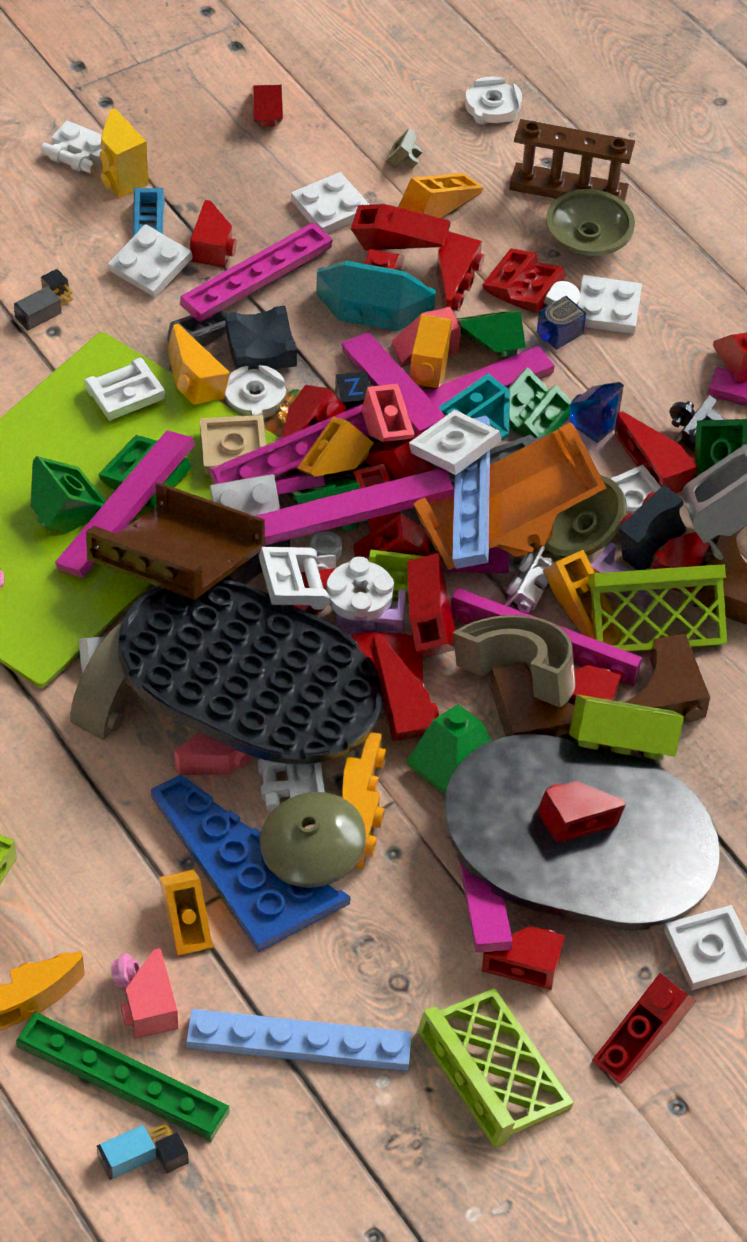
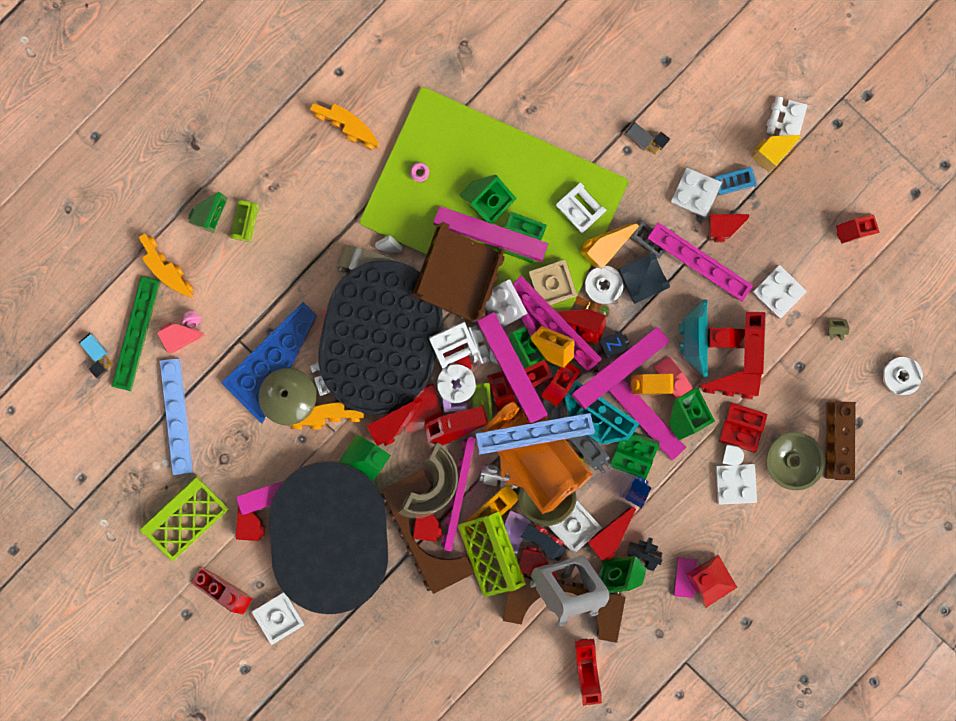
camera: 80 degrees right, 35 degrees up
(186, 911) = (234, 340): light orange slope -> none
(386, 413) = (575, 373): coral slope -> none
(439, 193) = (800, 360): light orange slope -> none
(455, 442) = (563, 417): white plate -> none
(561, 322) = (707, 457): clear blue brick -> none
(578, 810) = (330, 534): slope -> none
(625, 727) = (399, 550): lime brick -> none

